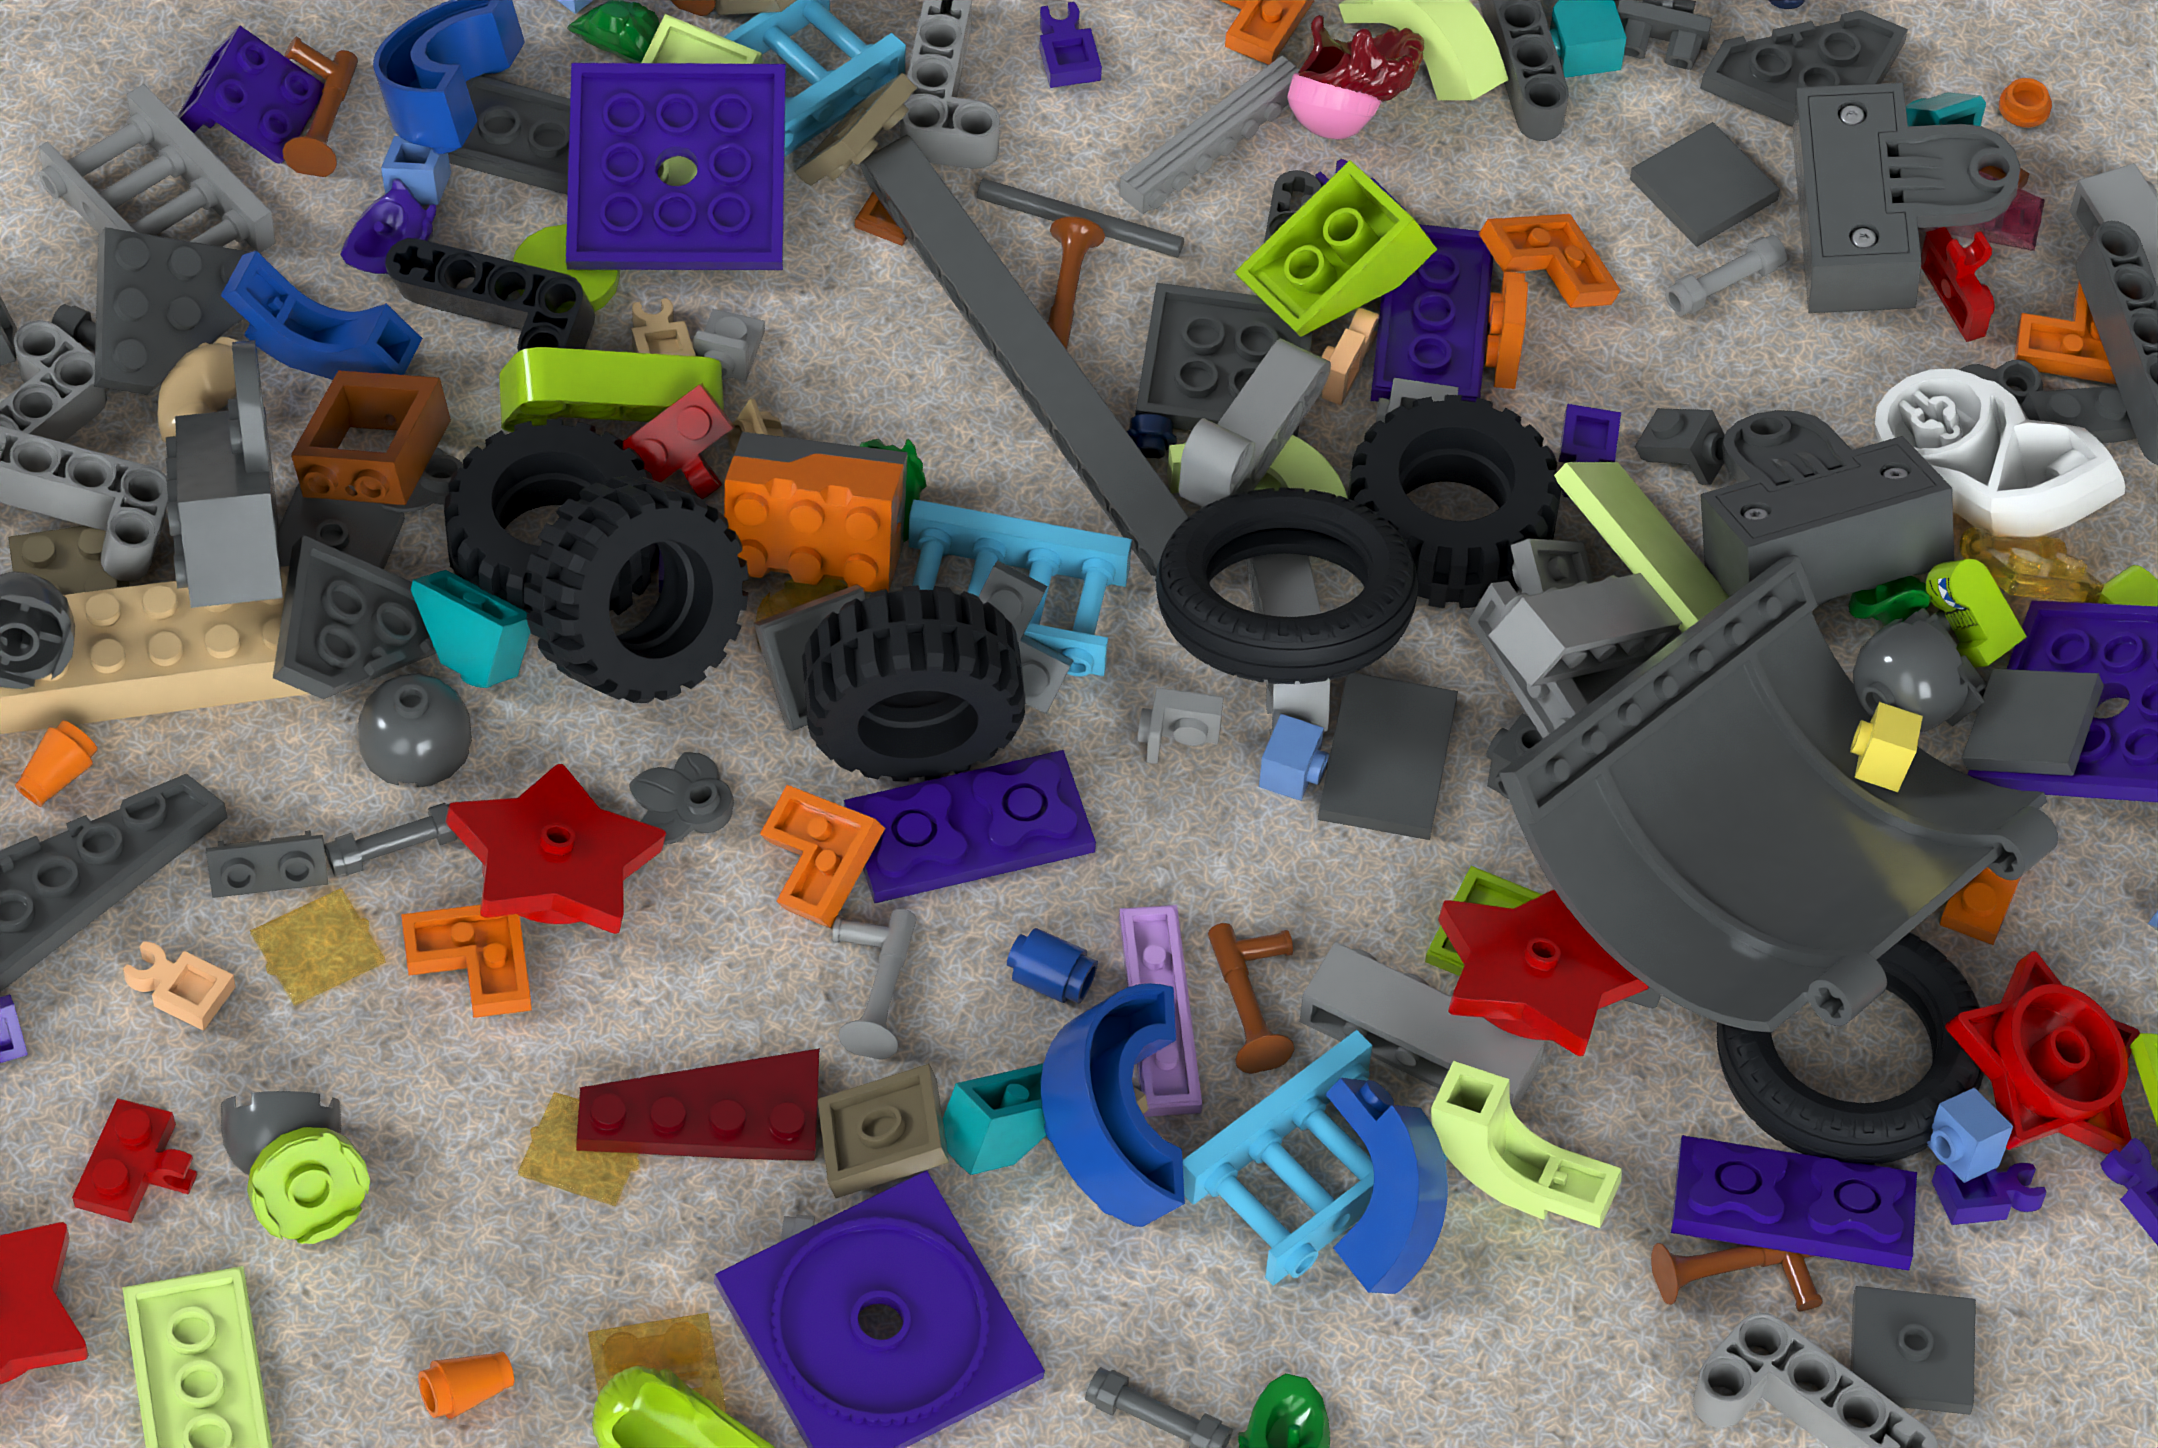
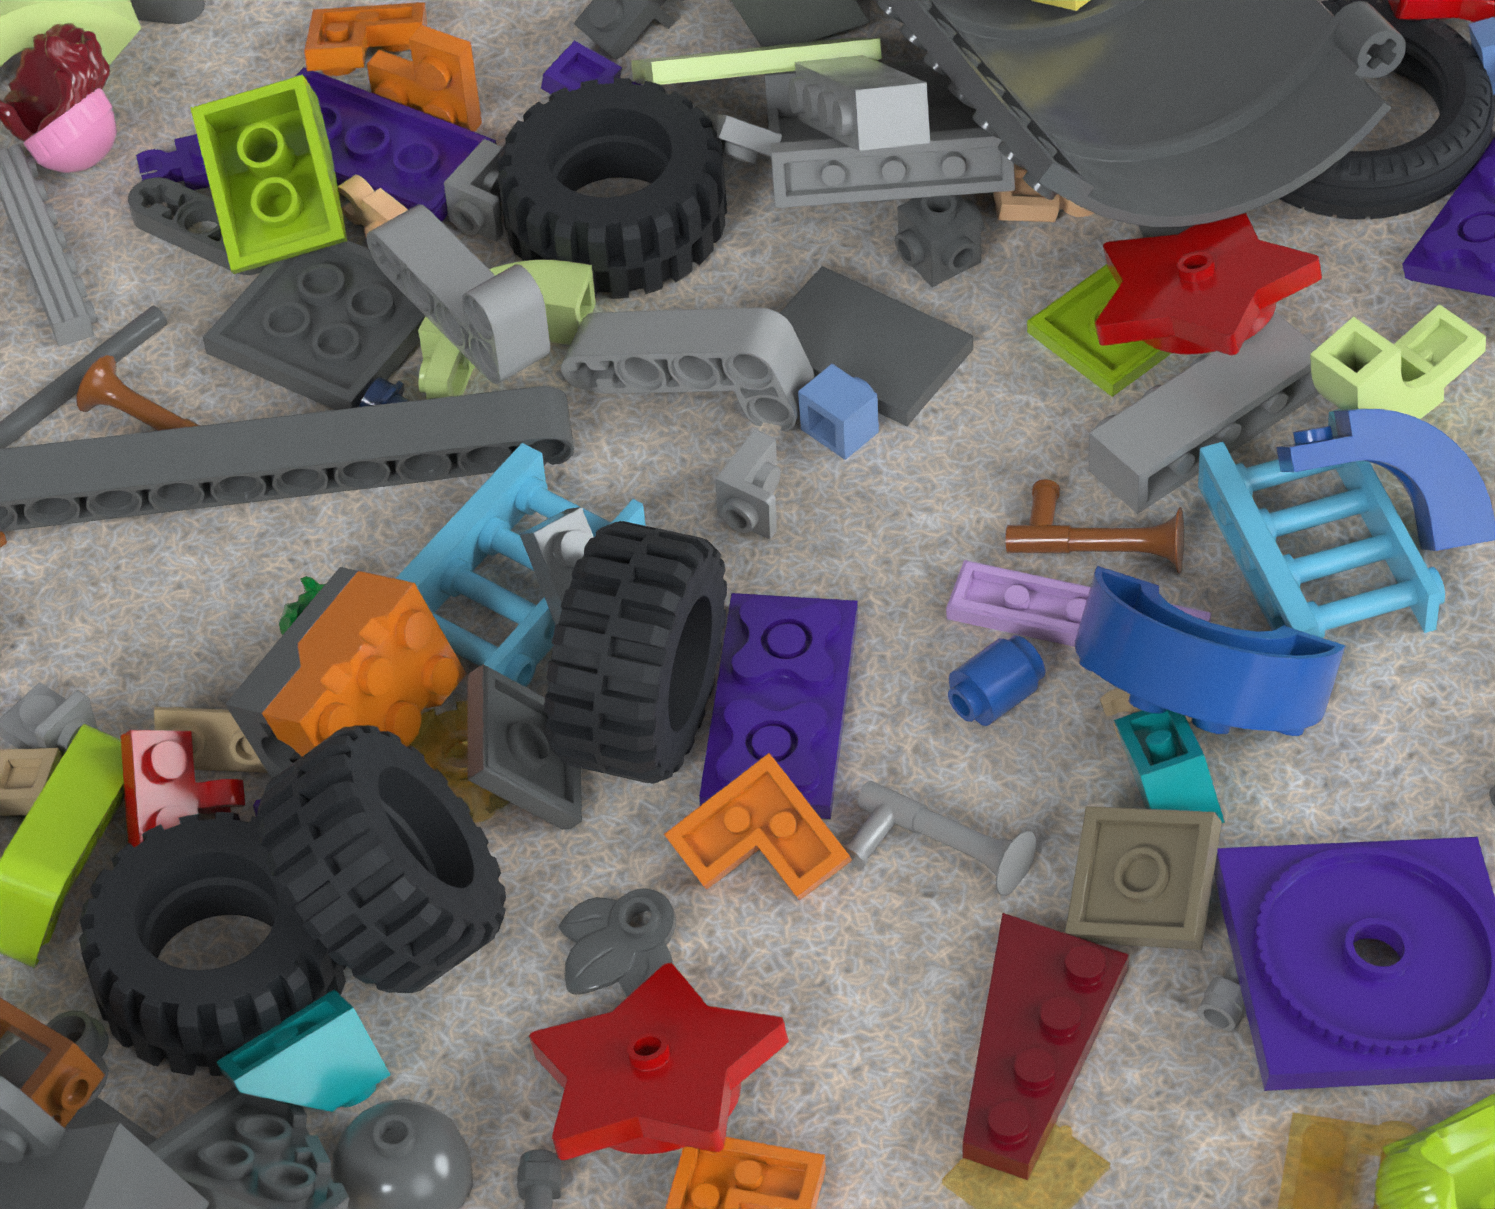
camera: 60 degrees left, 5 degrees down
(1277, 646) = (714, 372): black tyre -> none

